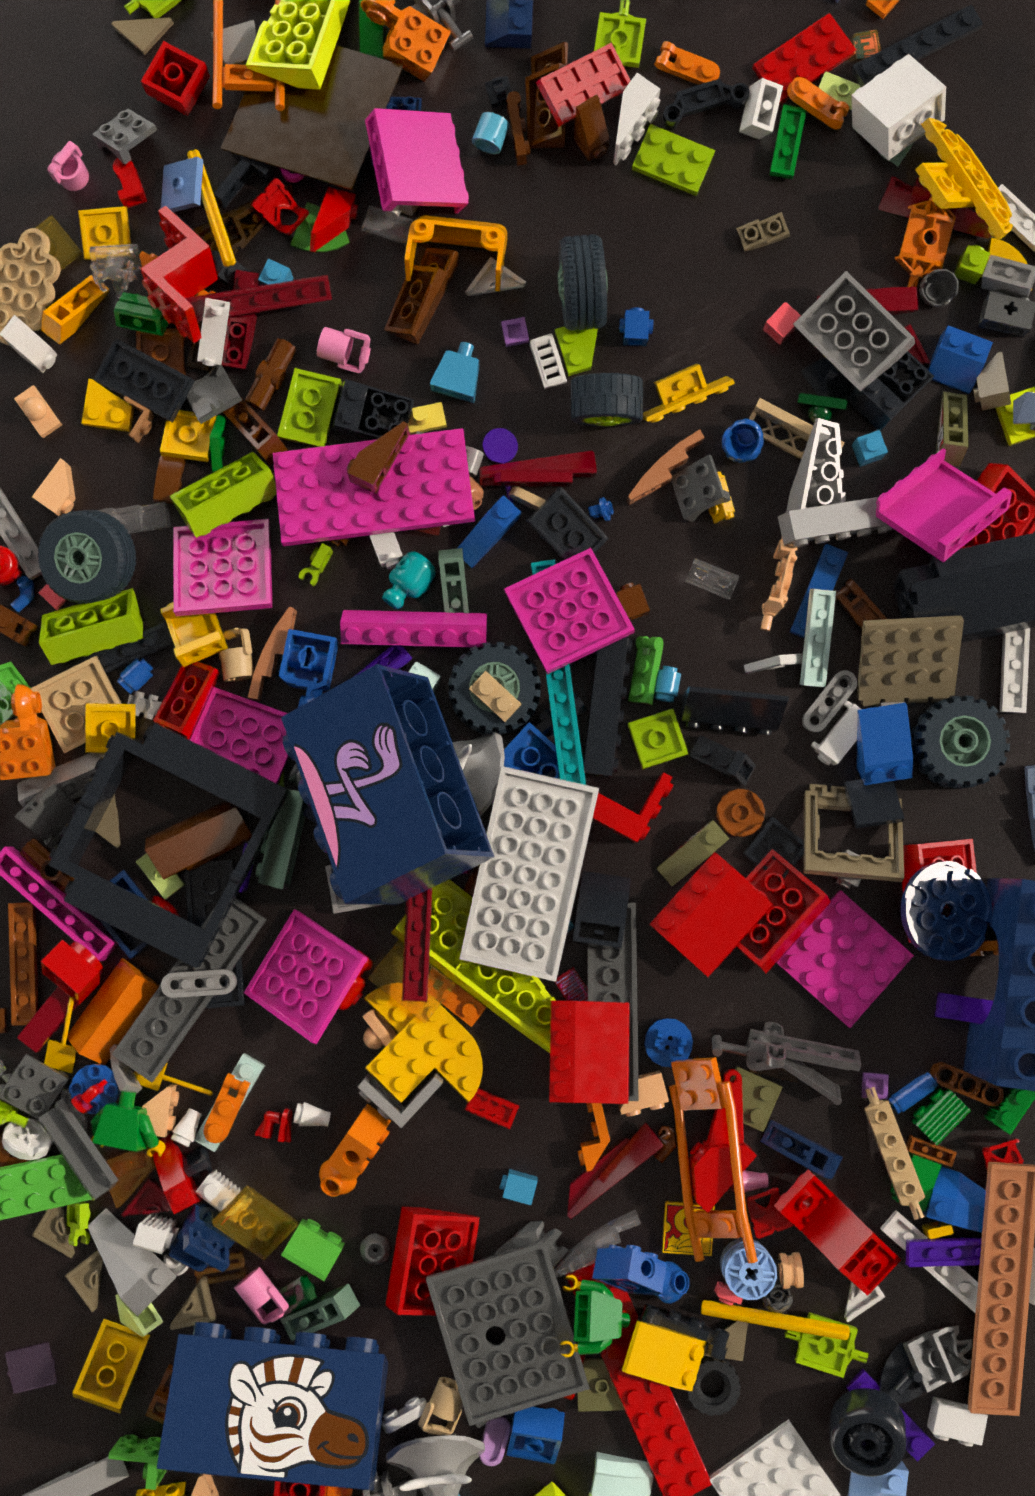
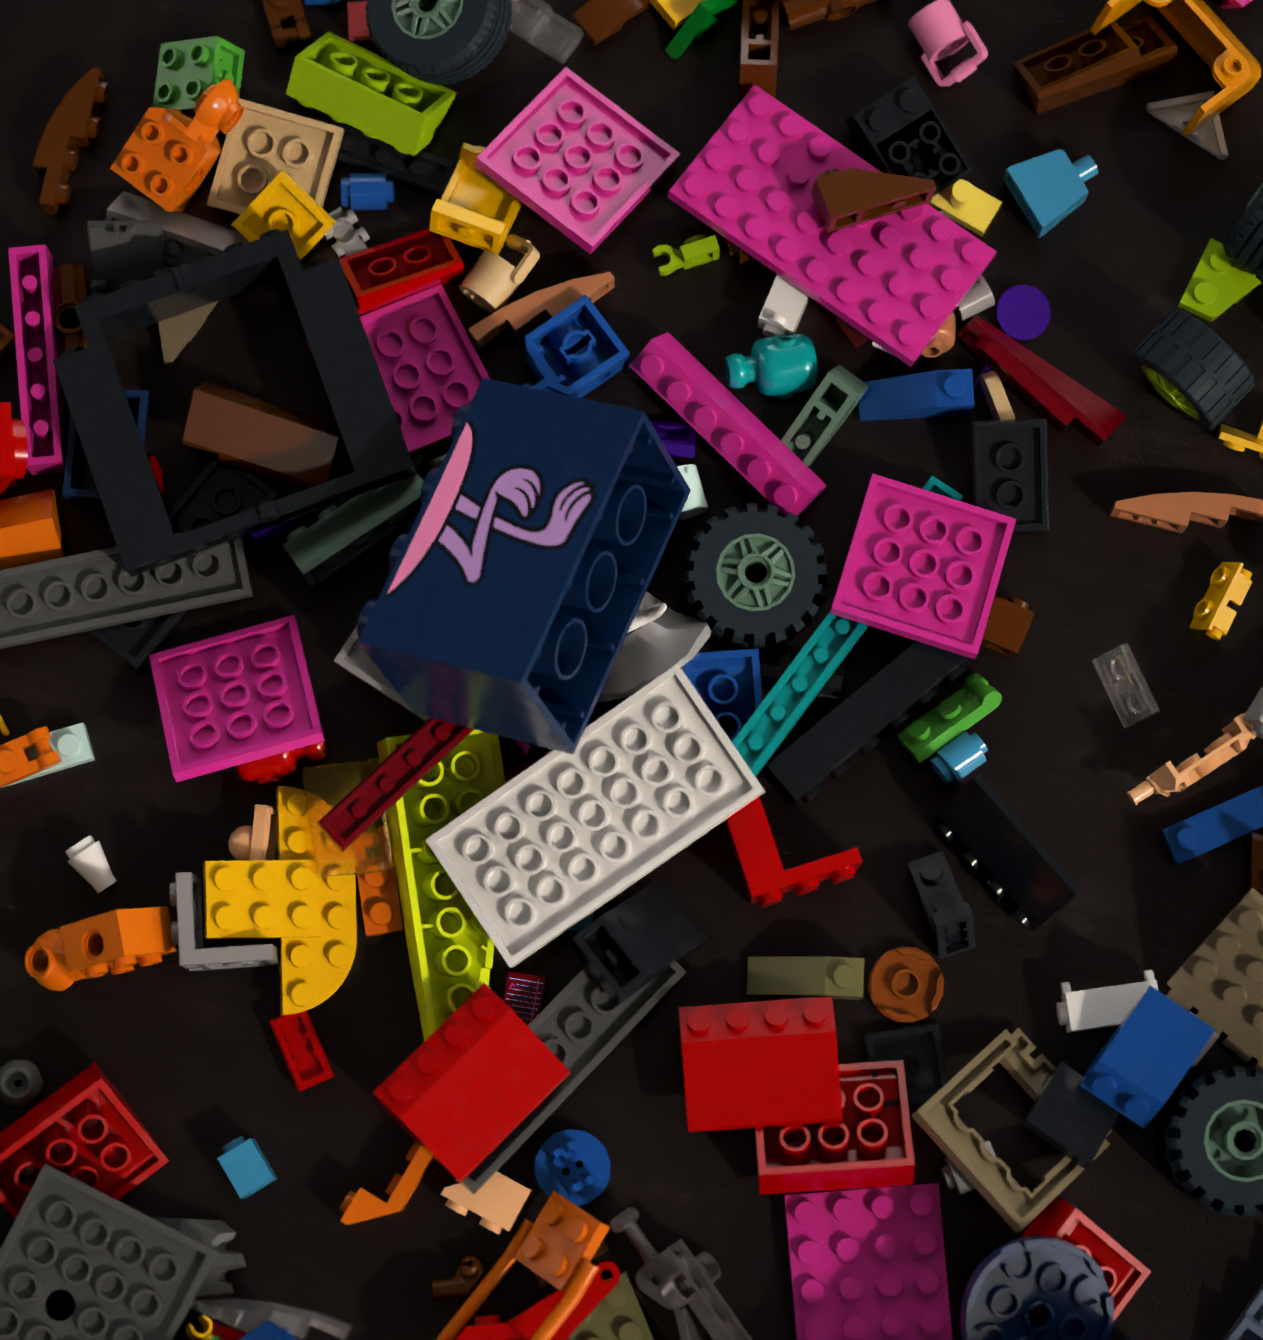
camera: 45 degrees right, 5 degrees down
(165, 887) = (177, 456): yellowish green plate -> none
(188, 986) = (100, 581): light grey plate -> none
(225, 494) = (657, 82): lime slope -> none
(266, 1128) = (57, 838): red piece -> none
(309, 408) = (844, 73): lime plate -> none
(495, 696) = (746, 582): tan plate -> none
(515, 331) = (1162, 200): medium lavender tile -> none
(541, 342) = (1178, 237): white slope -> none
(604, 509) = (1073, 492): blue plate -> none
(612, 1168) = (370, 1247): dark red wedge -> none
(657, 738) = (889, 809): lime plate -> none
(698, 488) = (1206, 568): dark grey piece -> none
(773, 663) = (1110, 850): white tile -> none
(817, 637) = (1185, 866): light aqua plate -> none
(836, 694) = (1147, 950): light grey plate -> none

